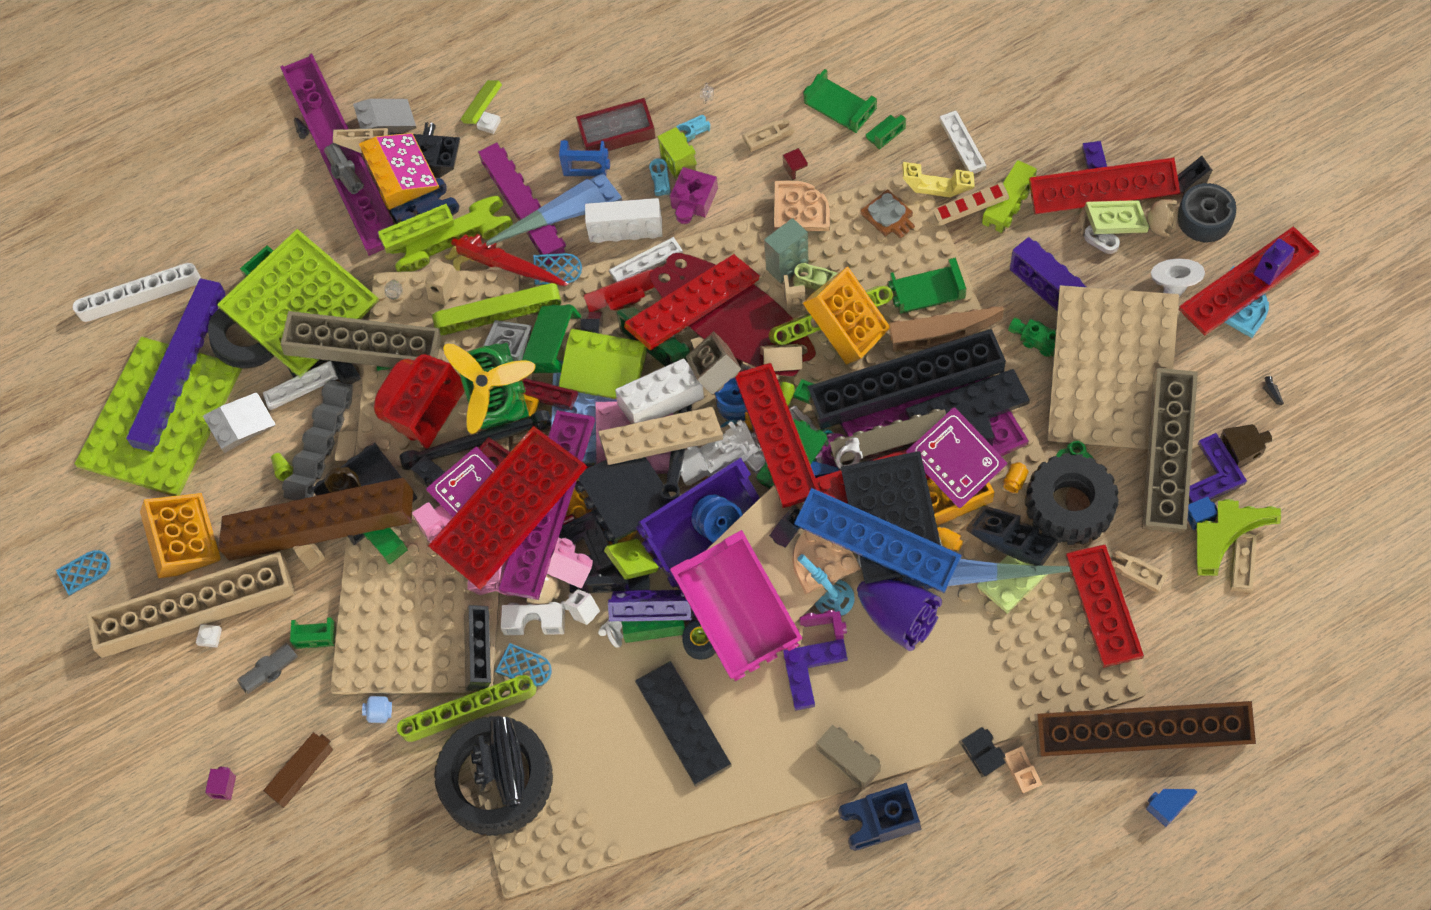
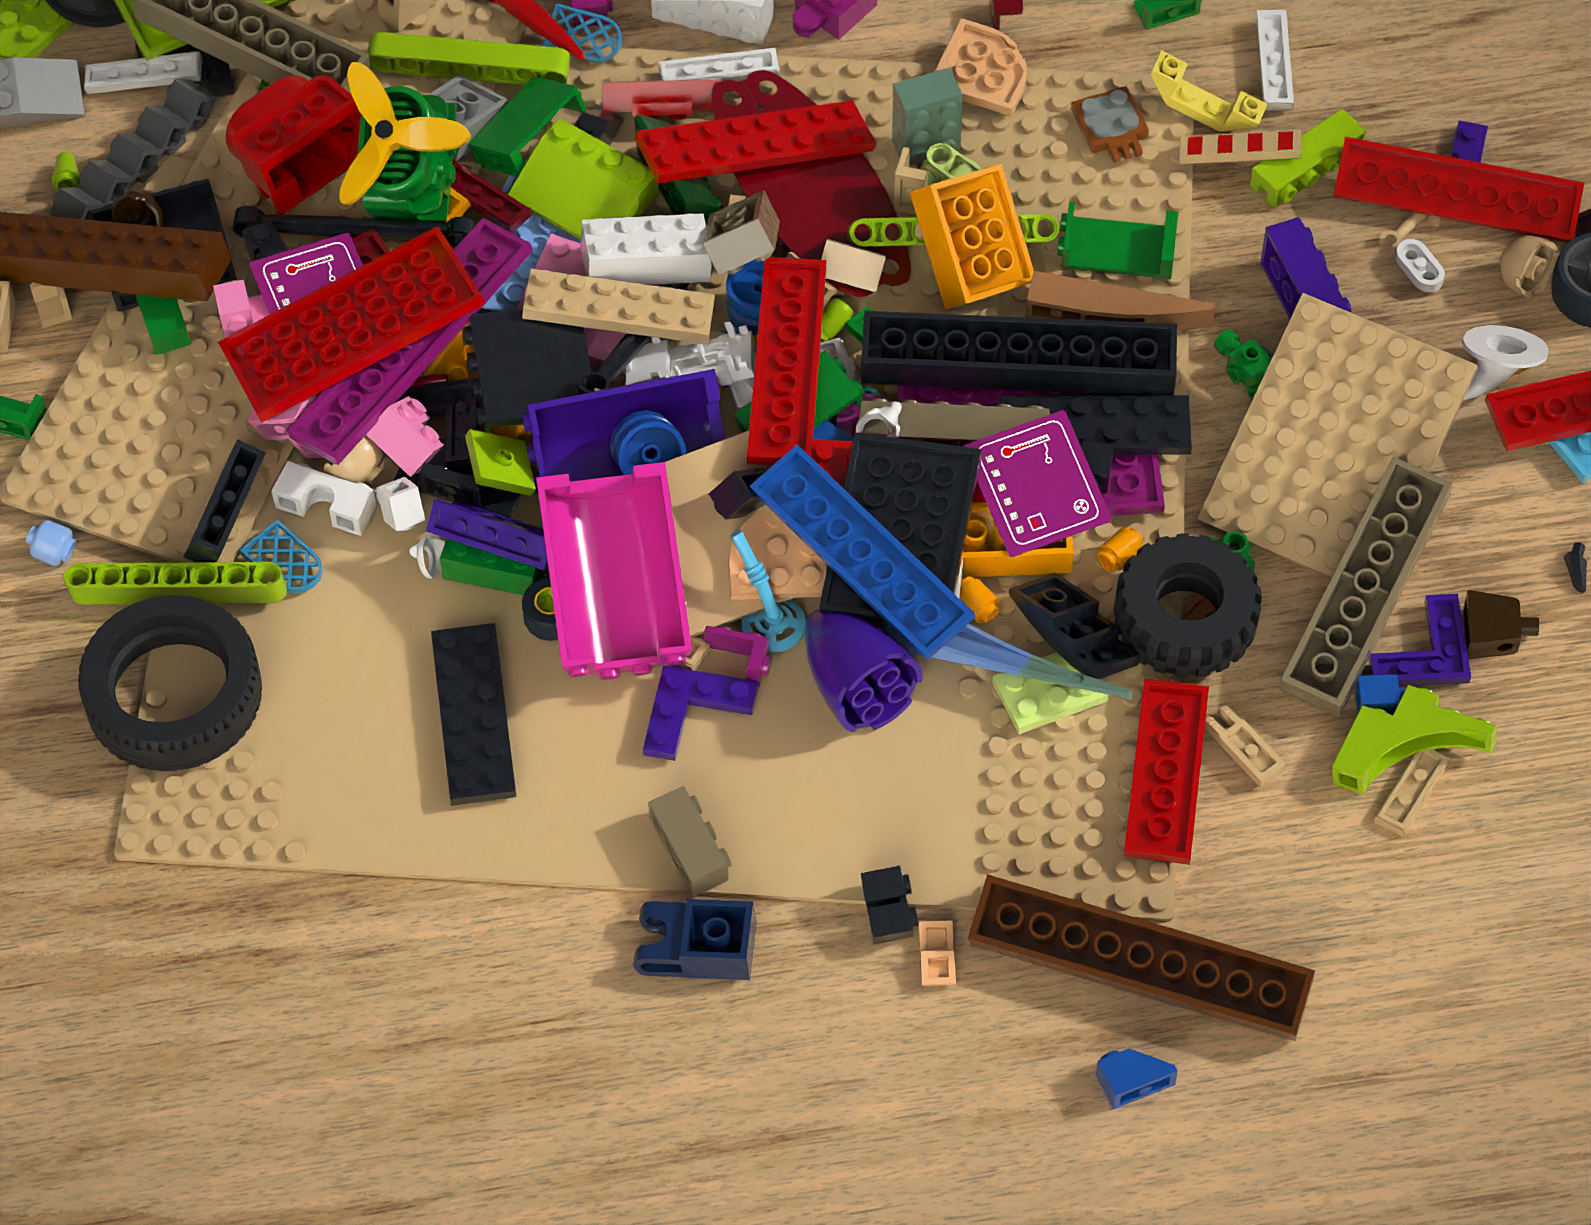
camera: 15 degrees right, 5 degrees down
(500, 762) = (182, 657): black plate -> none
(1116, 217) = (1455, 240): yellowish green plate -> none

